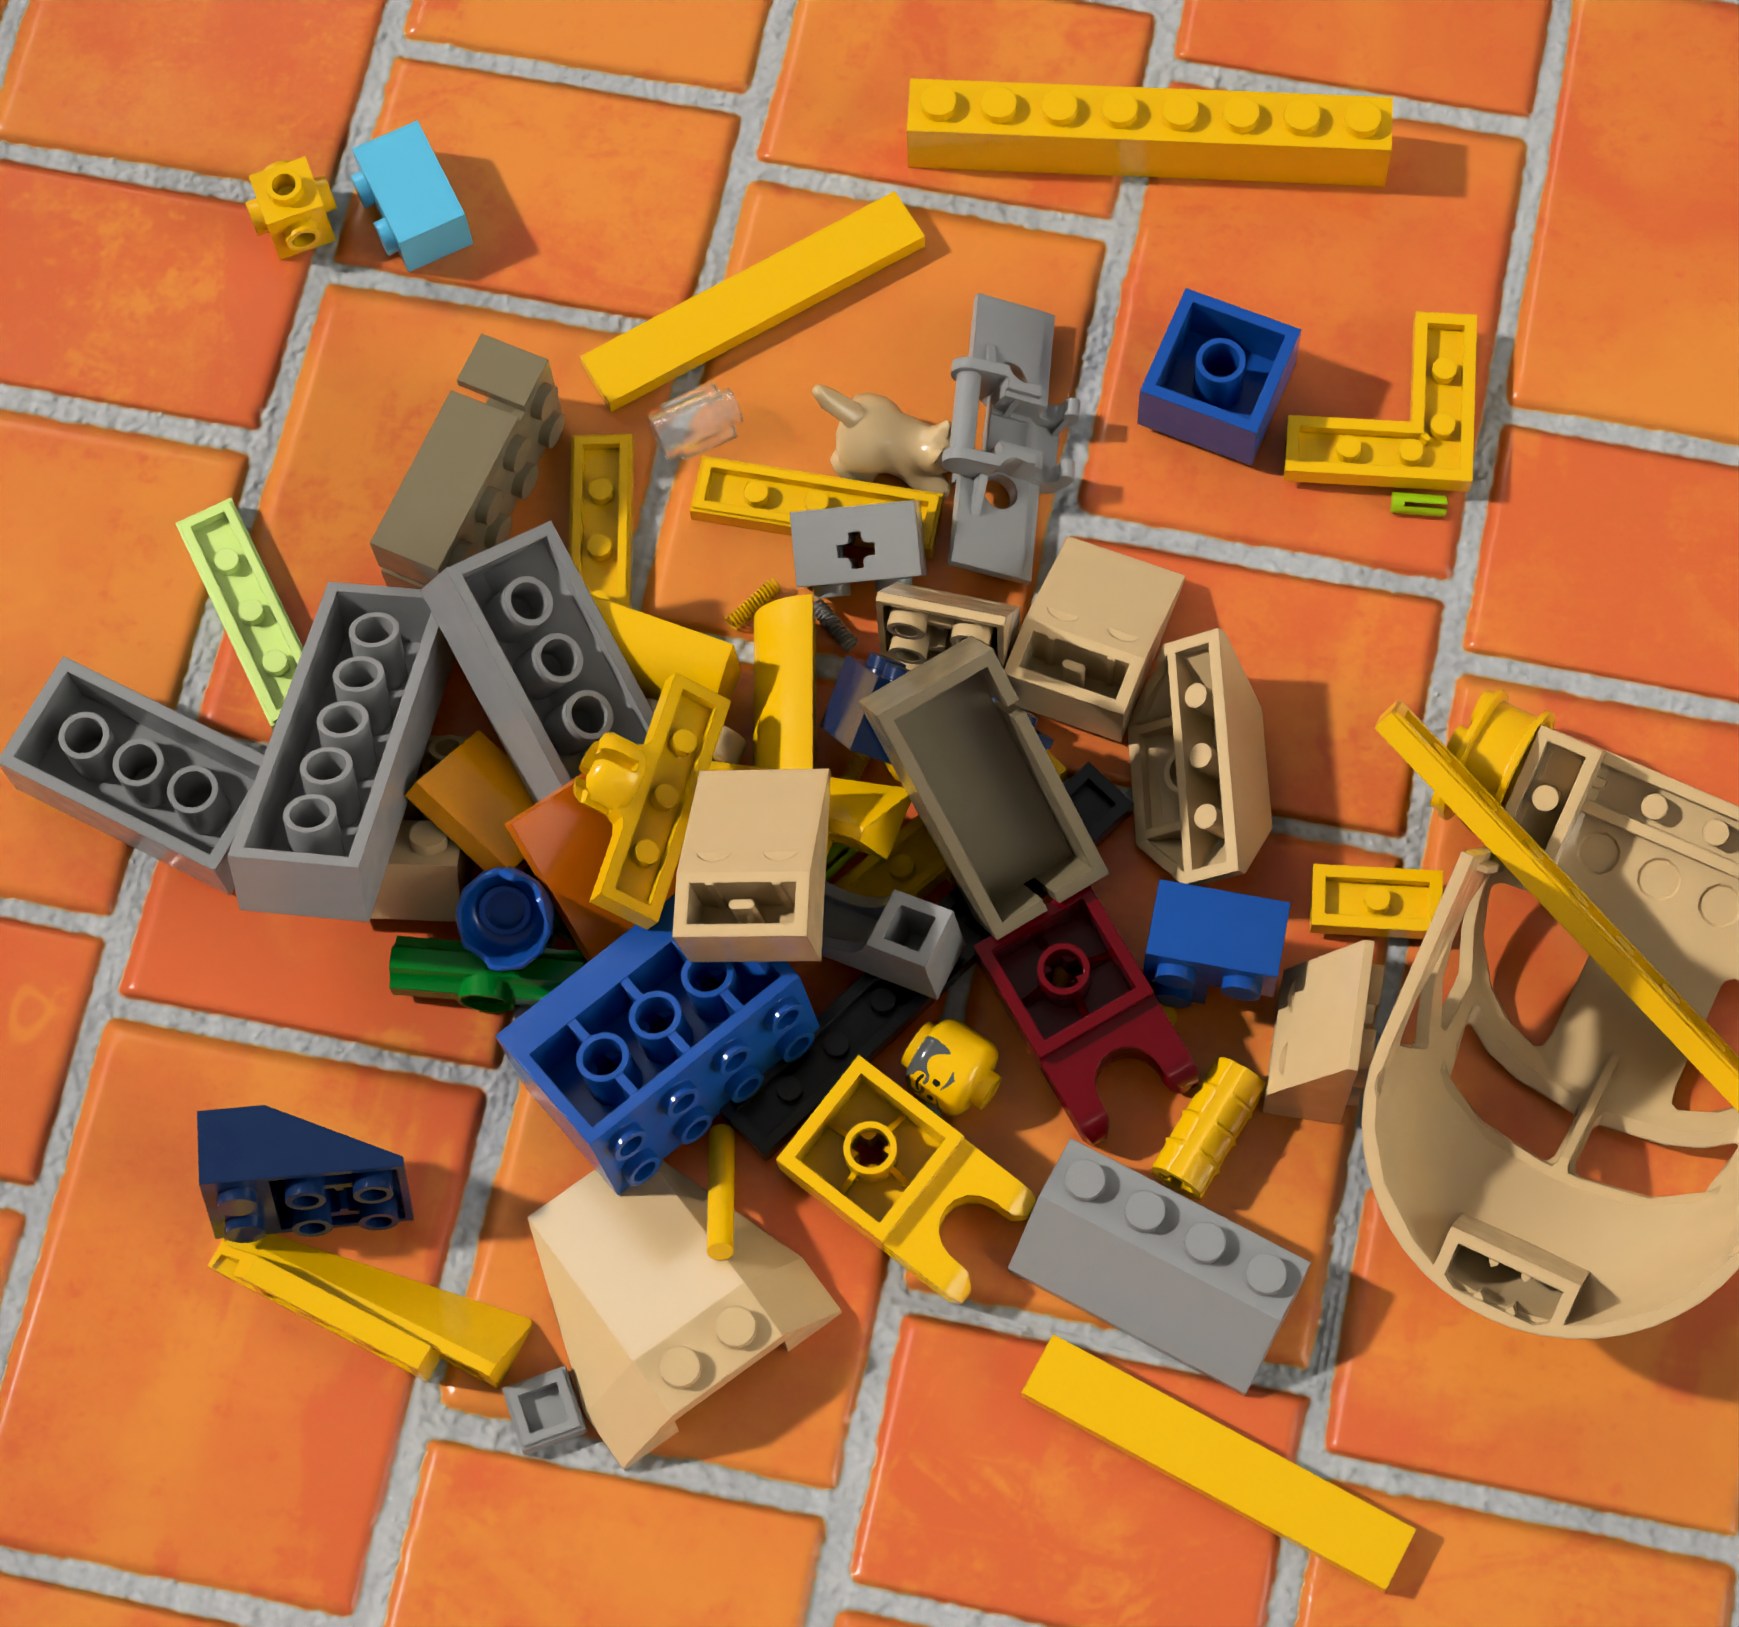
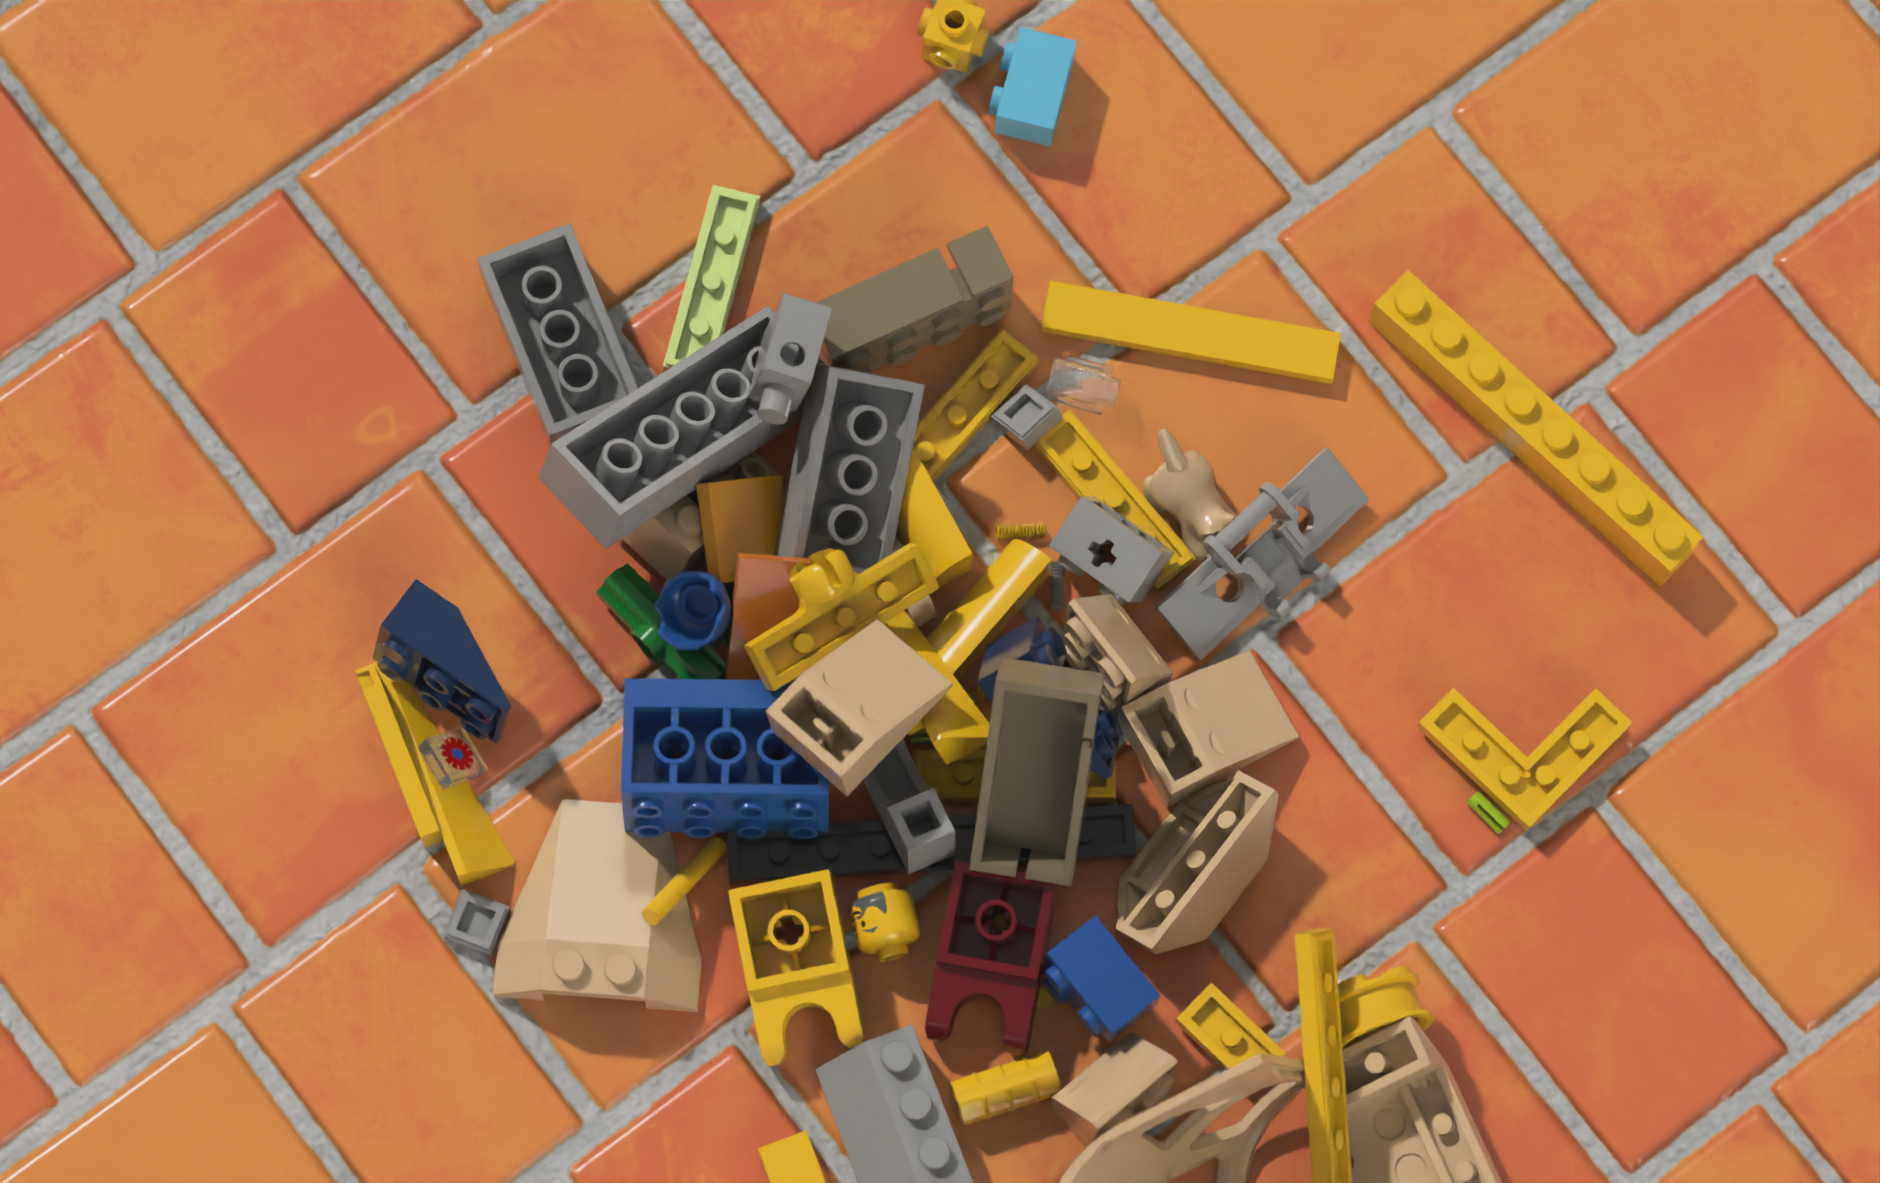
camera: 30 degrees right, 5 degrees up
(381, 1267) = (452, 758): none -> clear tile
(401, 621) = (788, 357): none -> light grey torso
(668, 494) = (1026, 416): none -> light grey tile
(1218, 376) = (1430, 627): blue brick -> none

